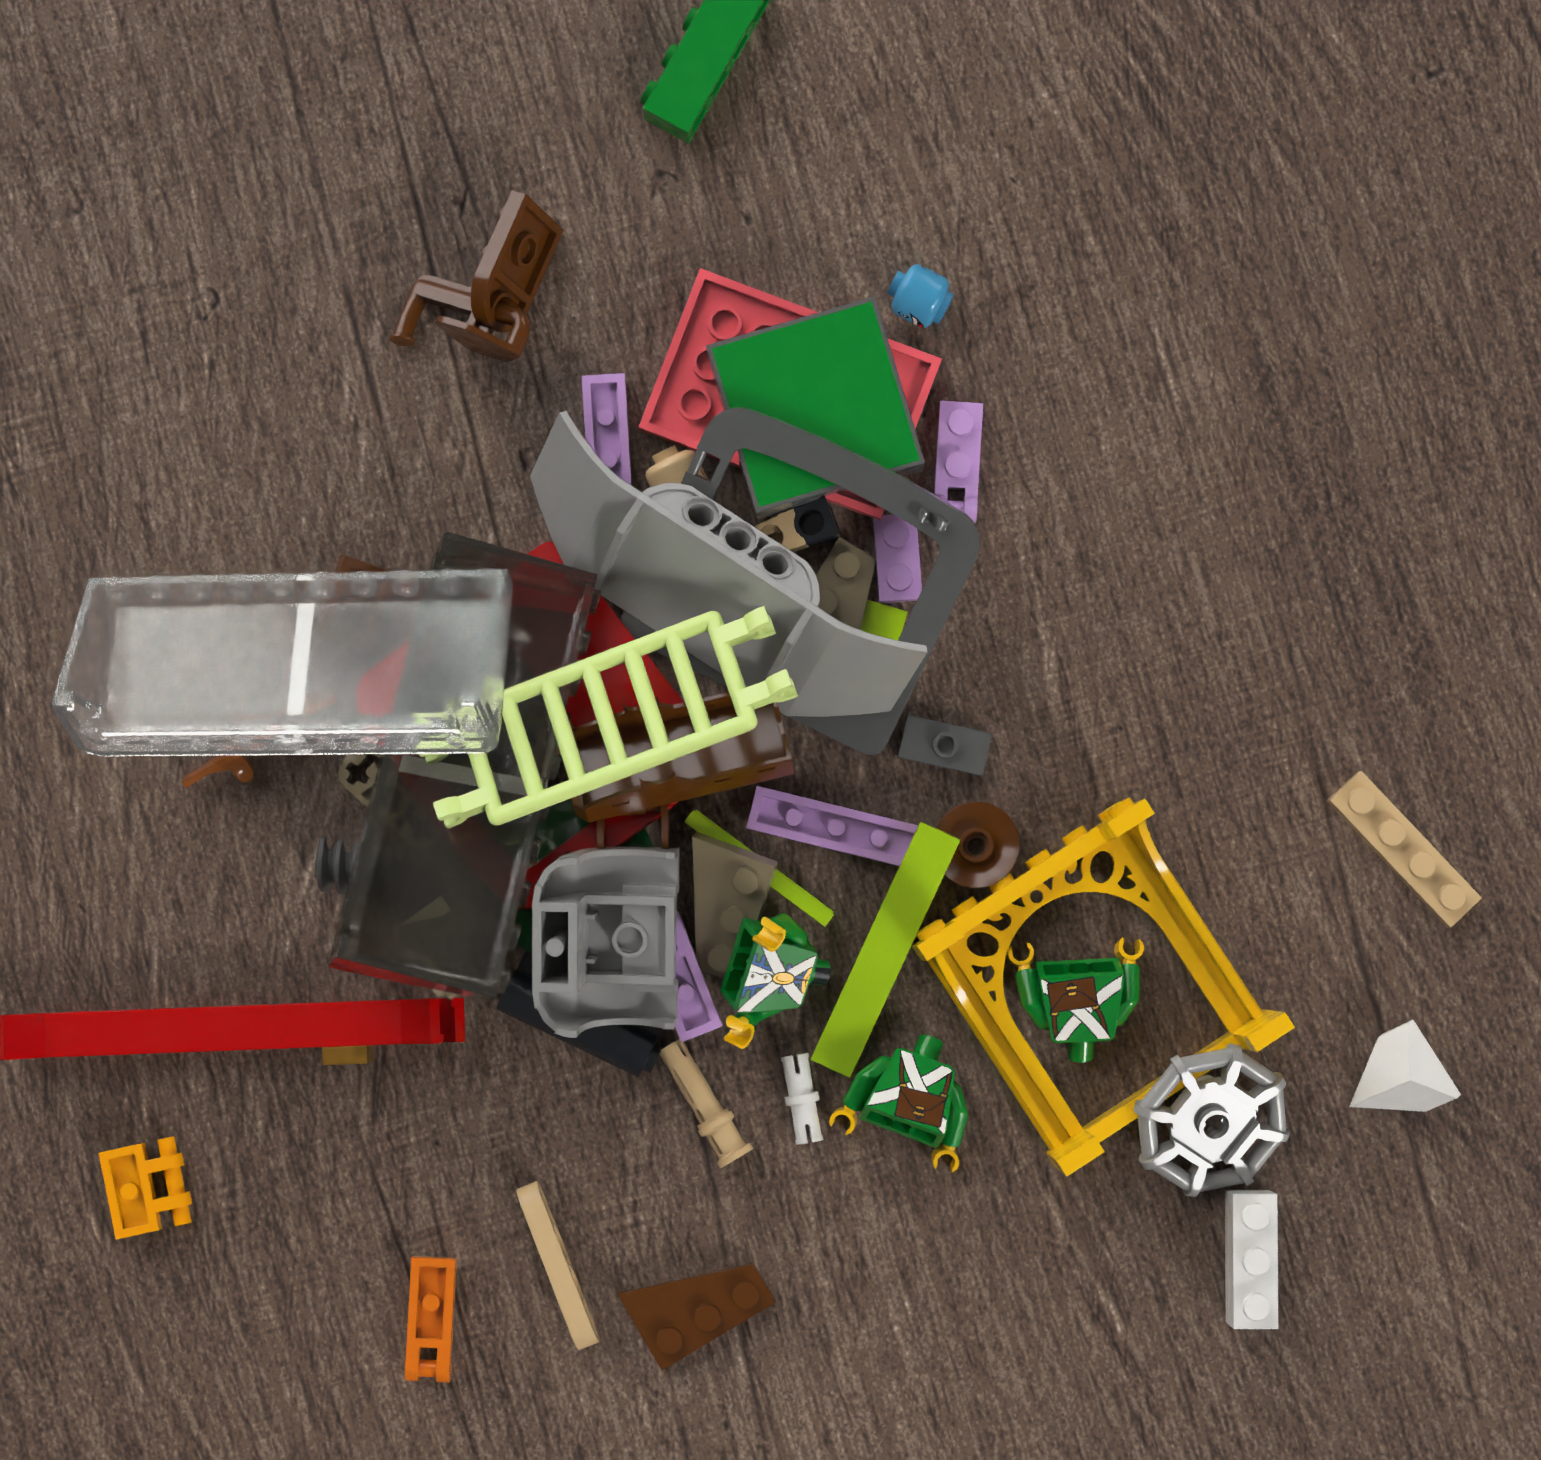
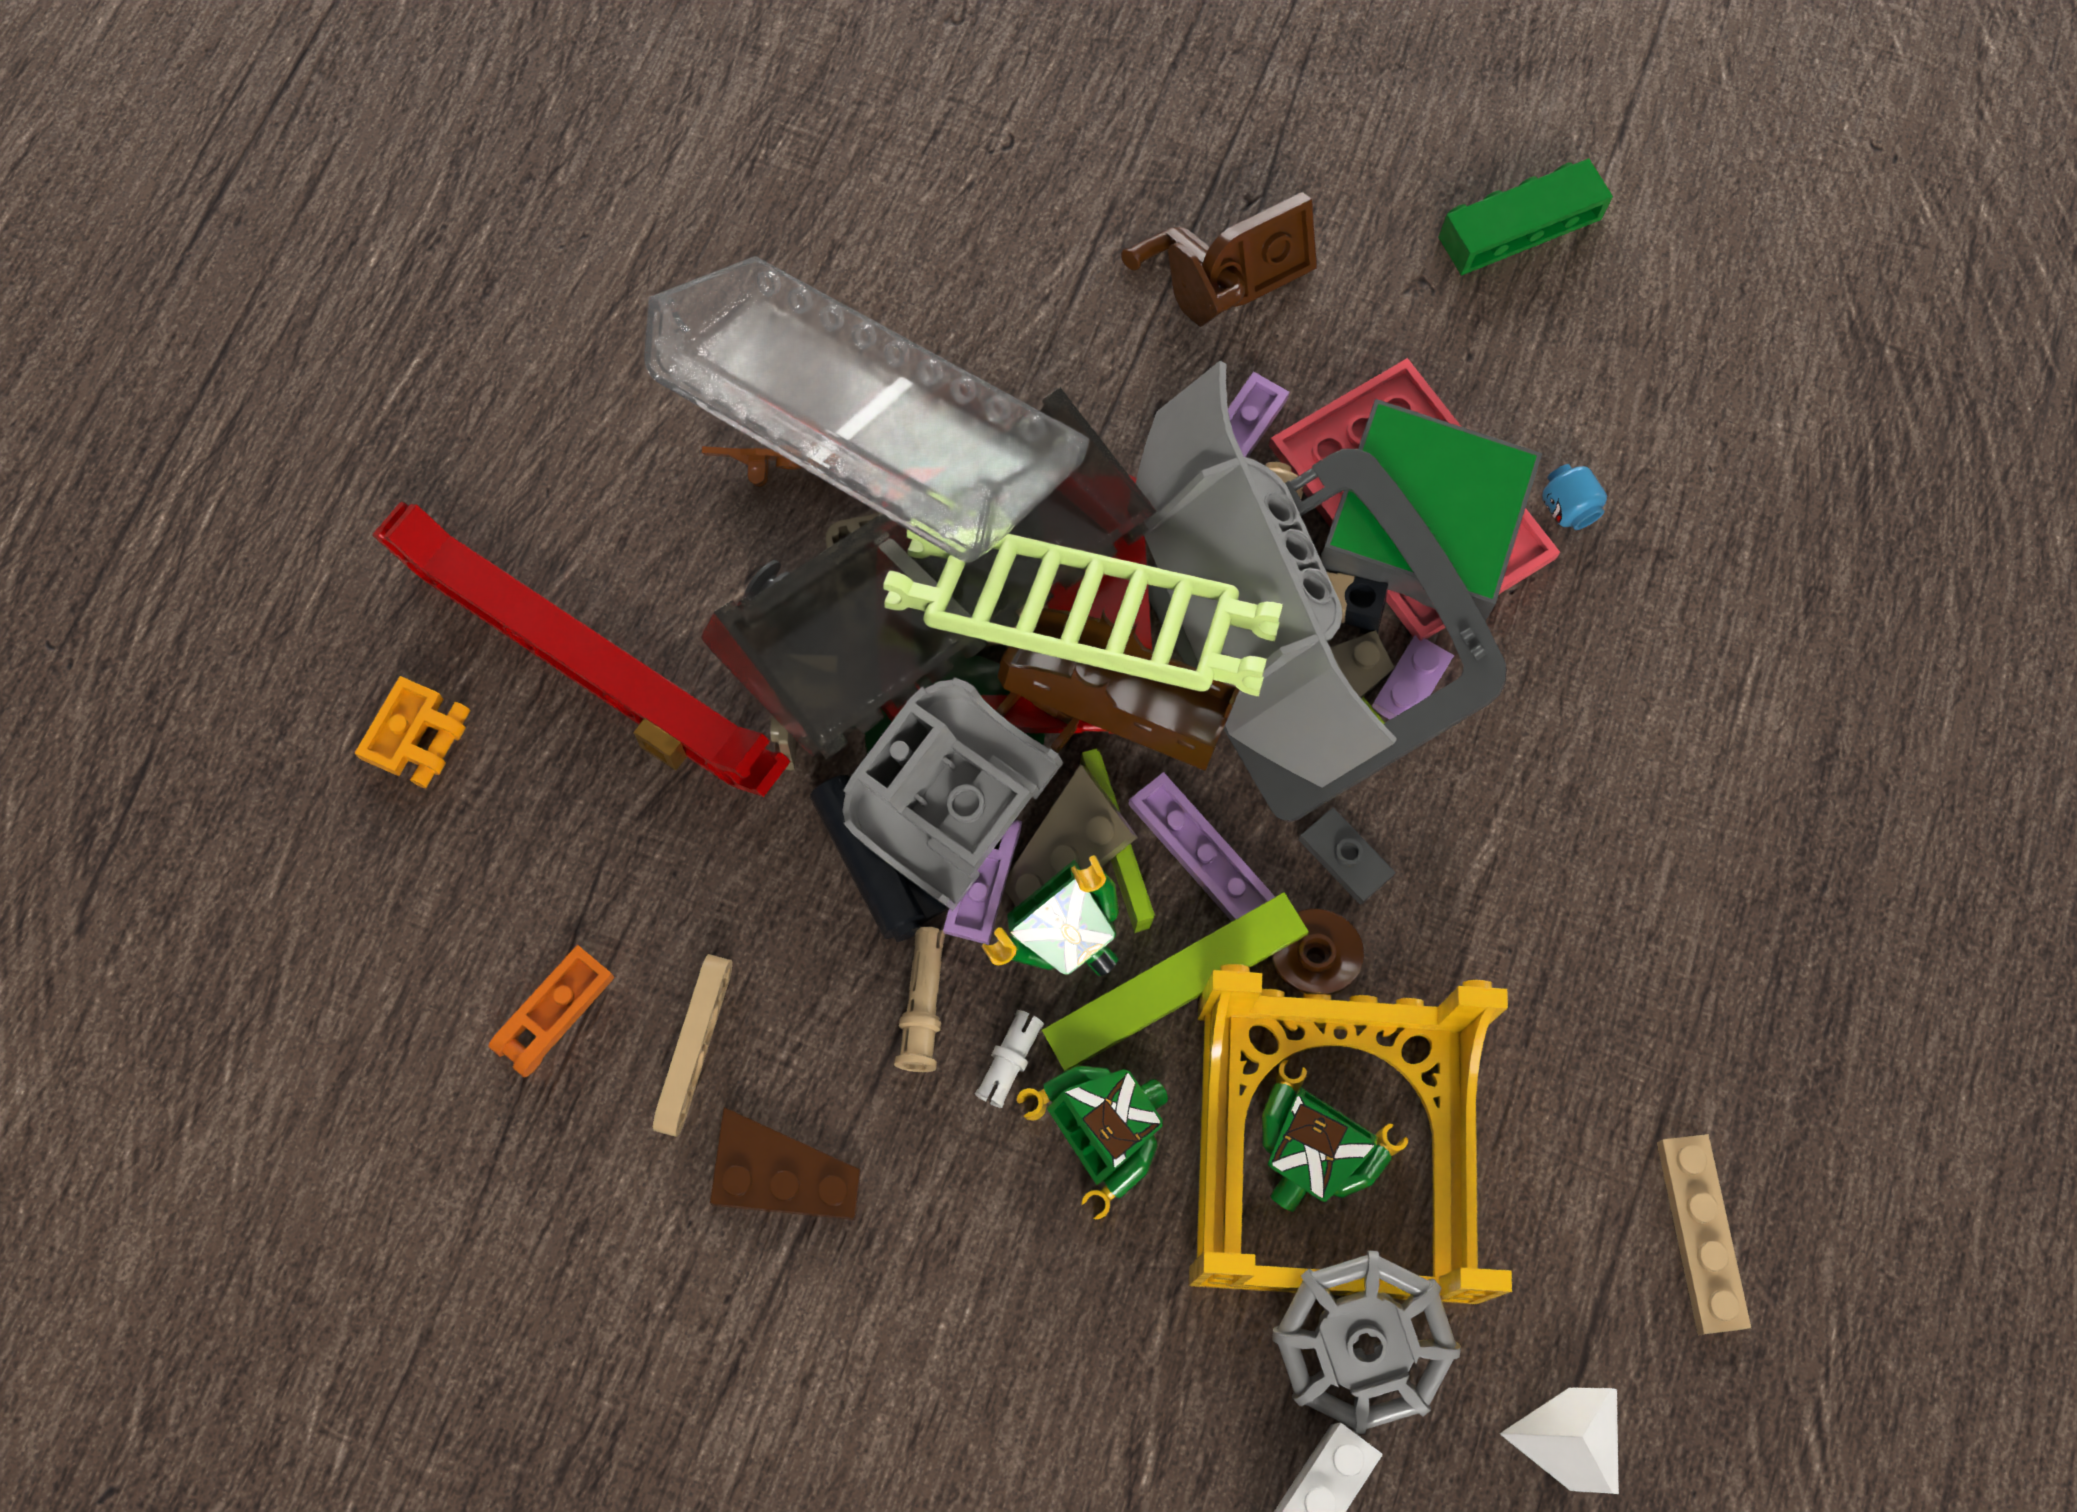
camera: 30 degrees right, 15 degrees down
(959, 453) = (1528, 631): lavender plate -> none

